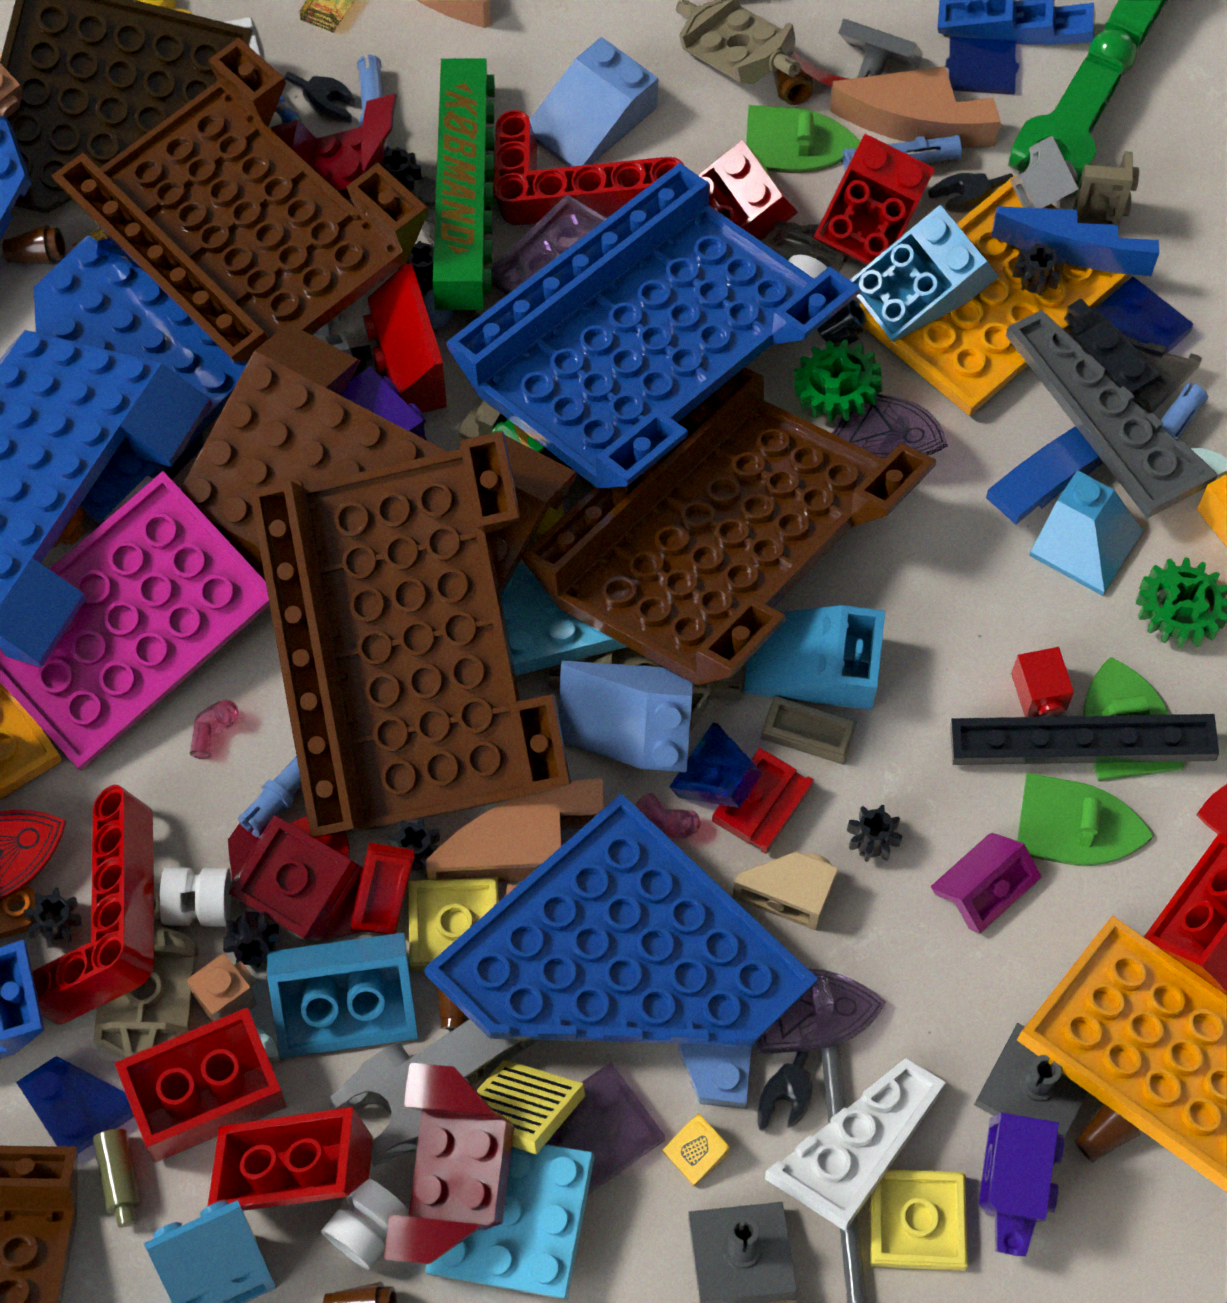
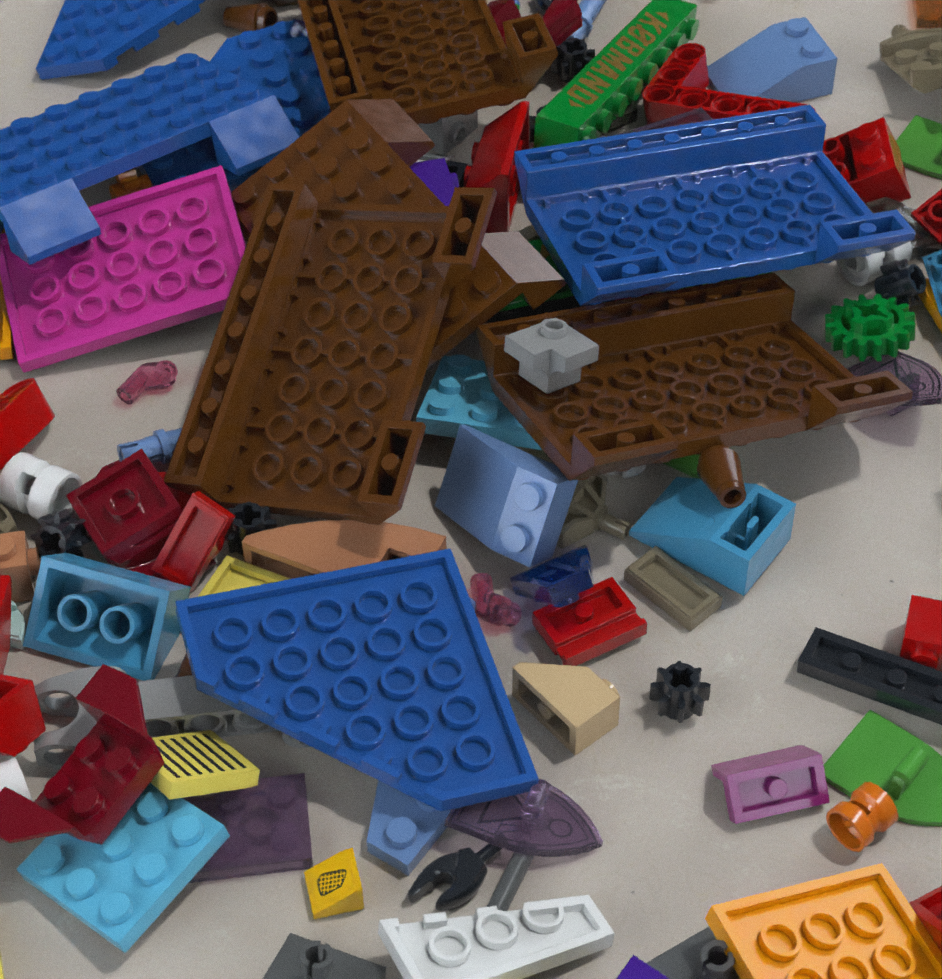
camera: 30 degrees right, 15 degrees down
(611, 558) = (551, 354): none -> light grey brick
(812, 611) = (722, 474): none -> reddish brown cone
(1076, 879) = (866, 813): none -> orange wheel

